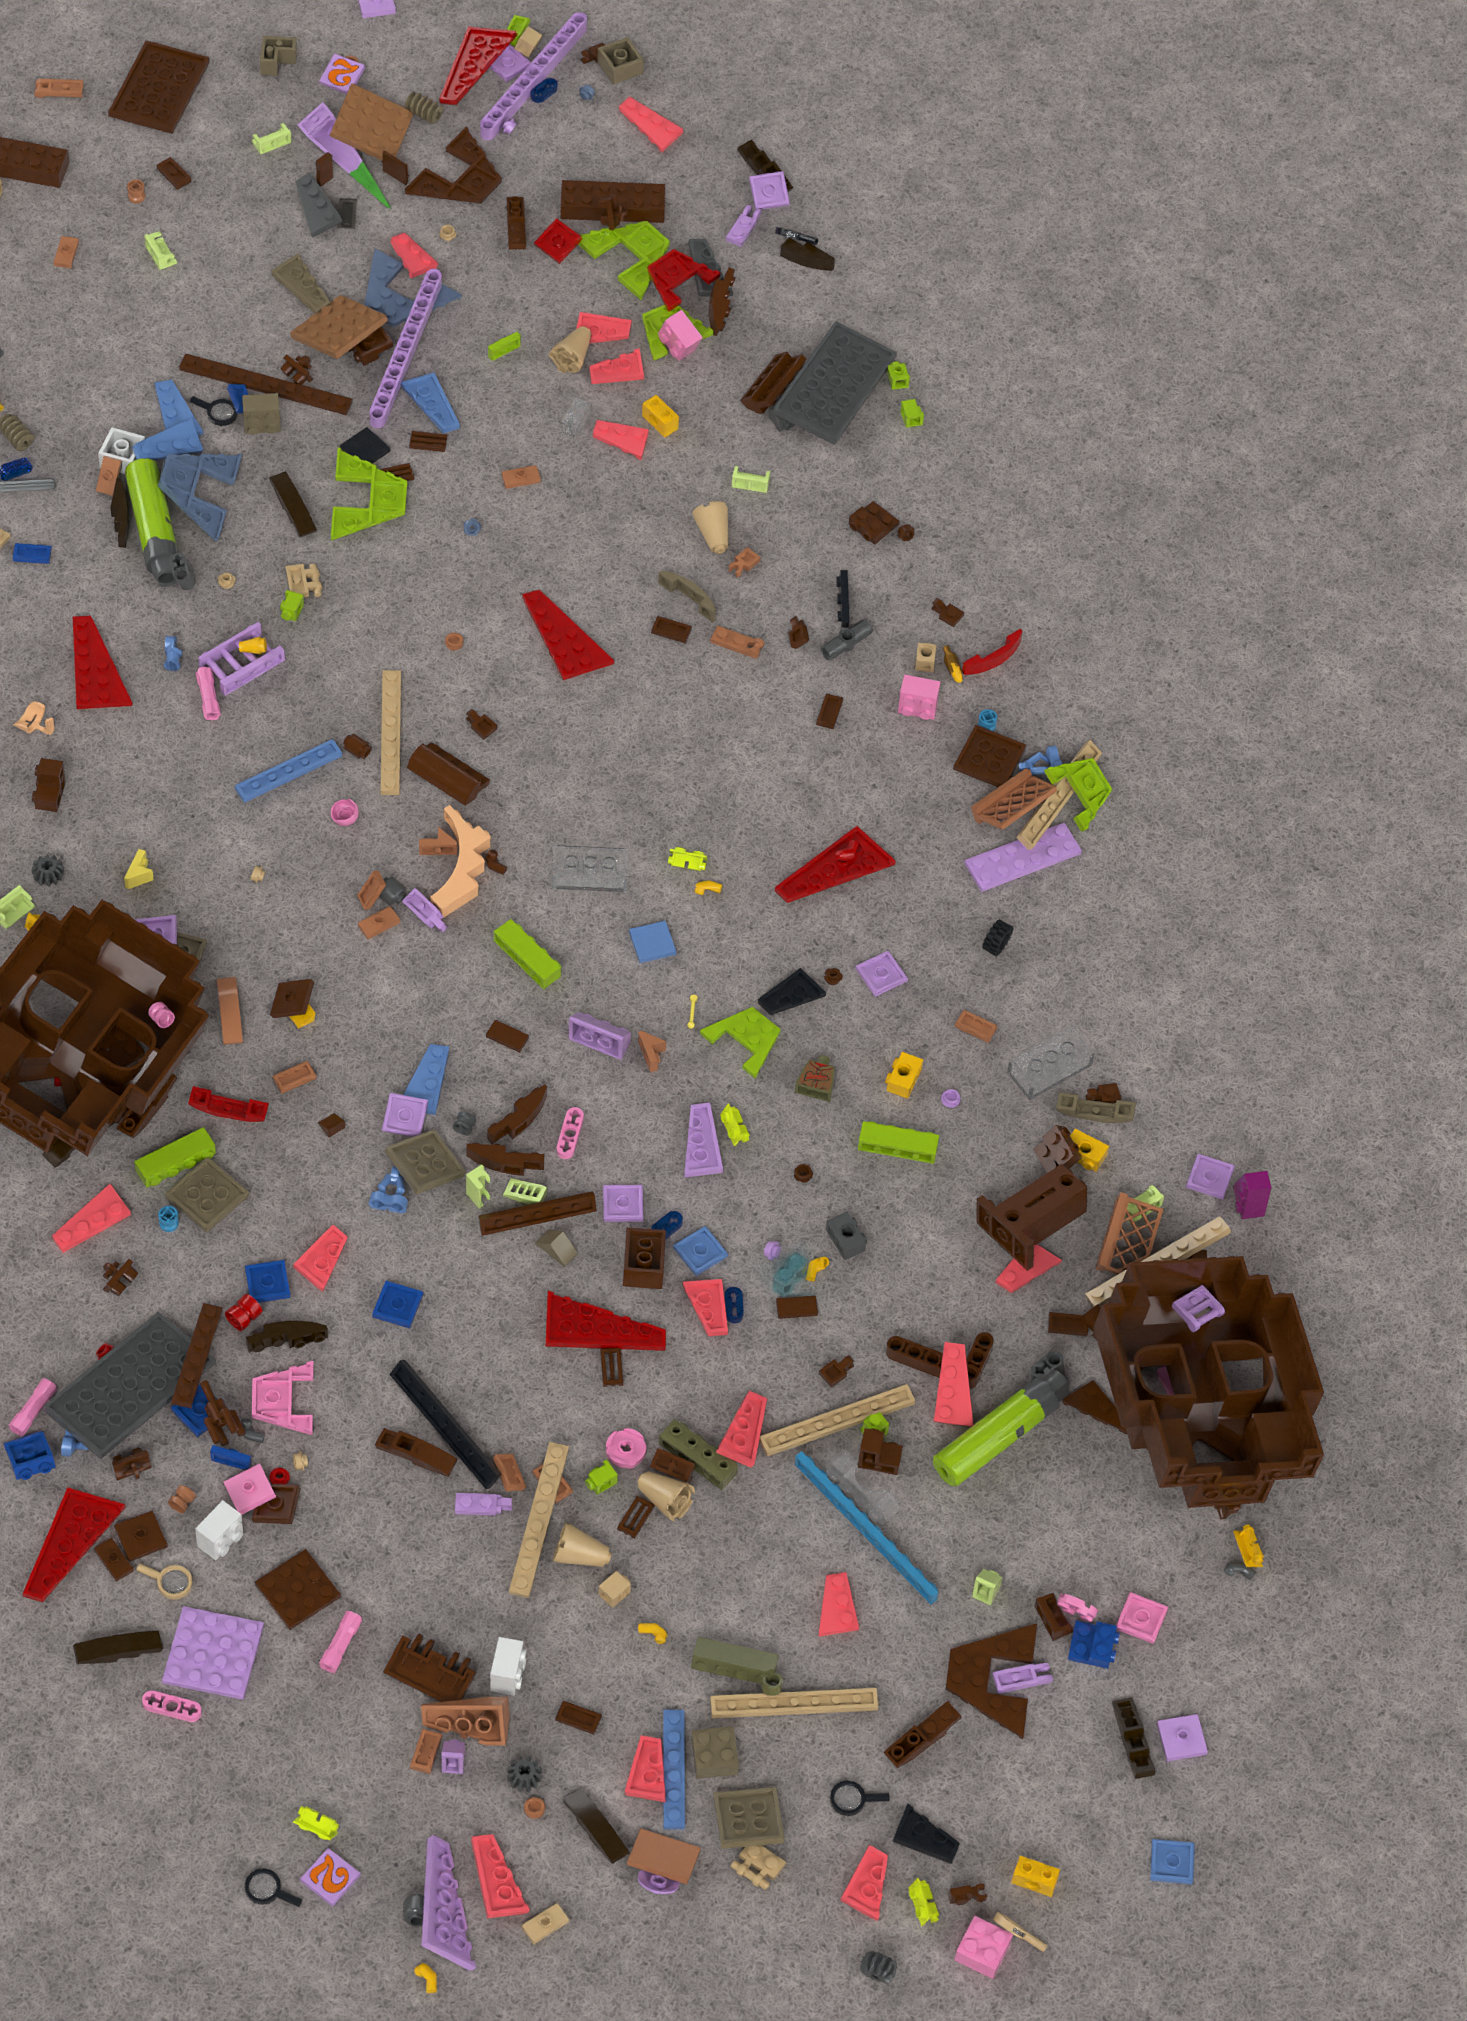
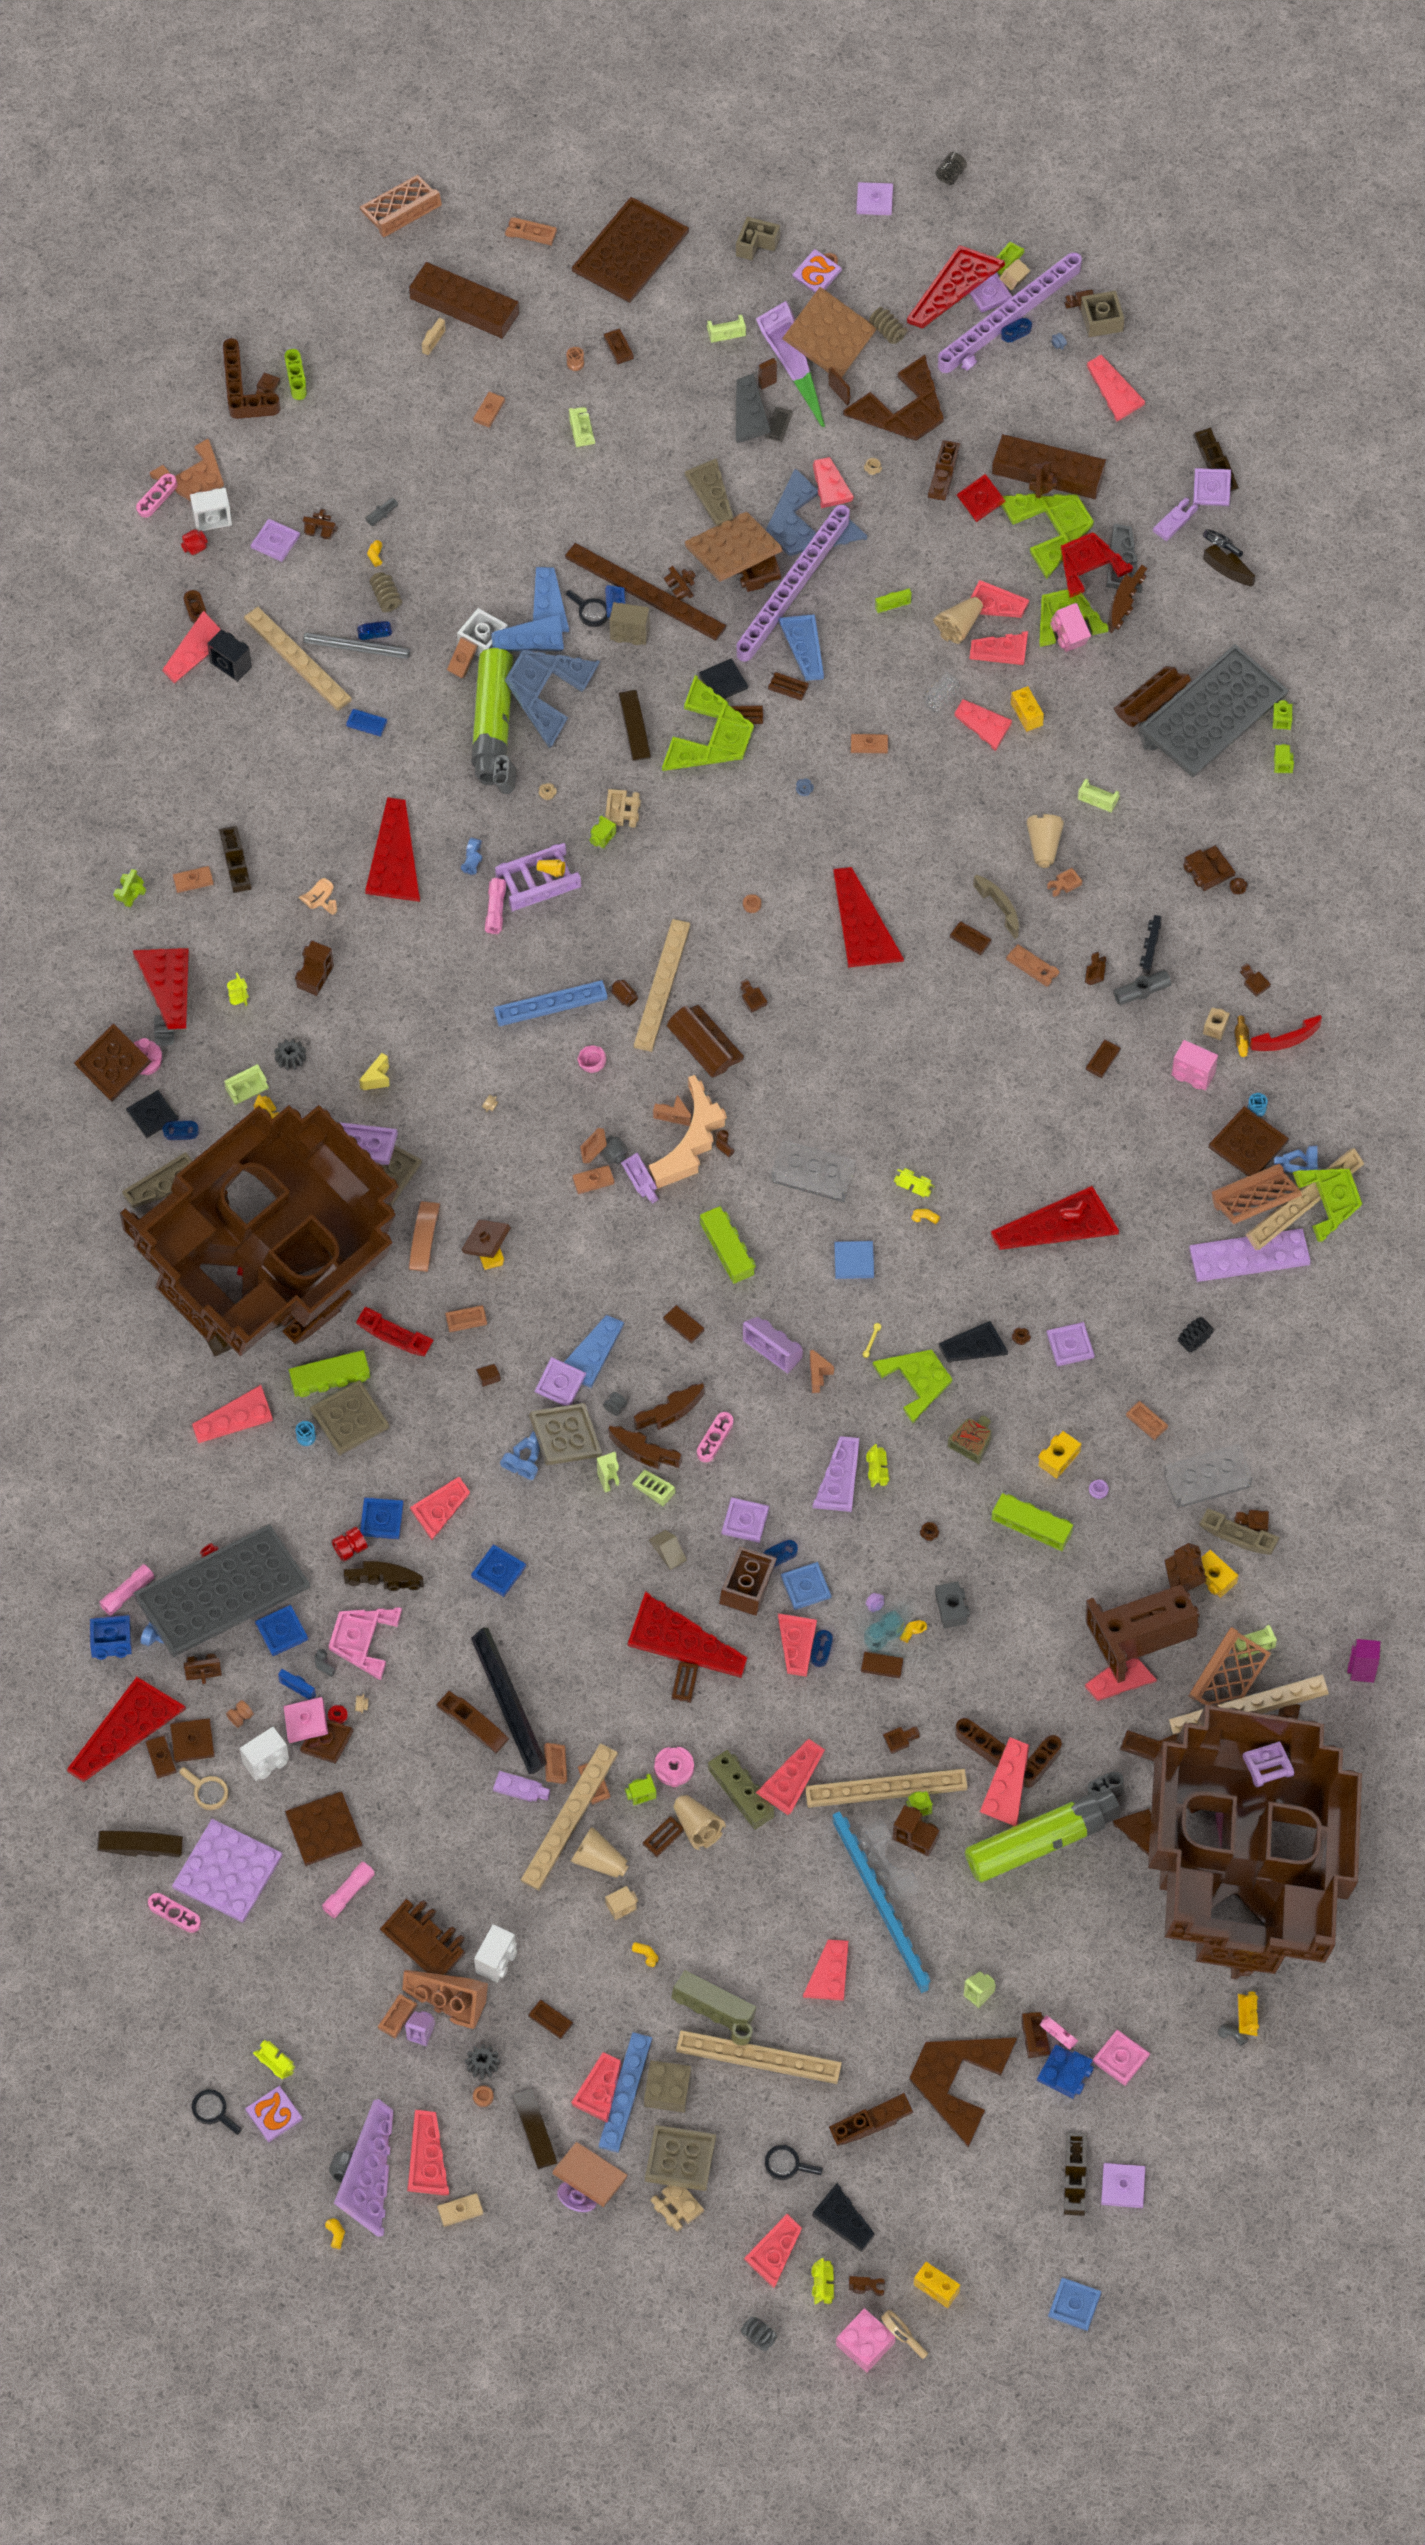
camera: 20 degrees right, 5 degrees up
(114, 1284) = (236, 1486): reddish brown hips -> none
(120, 512) = (463, 695): dark brown slope -> none
(161, 1014) = (350, 1230): bright pink wheel -> none
(197, 1355) = (293, 1576): reddish brown plate -> none
(220, 1416) = (296, 1642): reddish brown plant -> none
(537, 1213) = (658, 1511): reddish brown plate -> none
(673, 1465) = (712, 1795): reddish brown hinge -> none
(1021, 1677) = (985, 2087): lavender hinge -> none
(1210, 1176) = (1332, 1629): lavender tile -> none

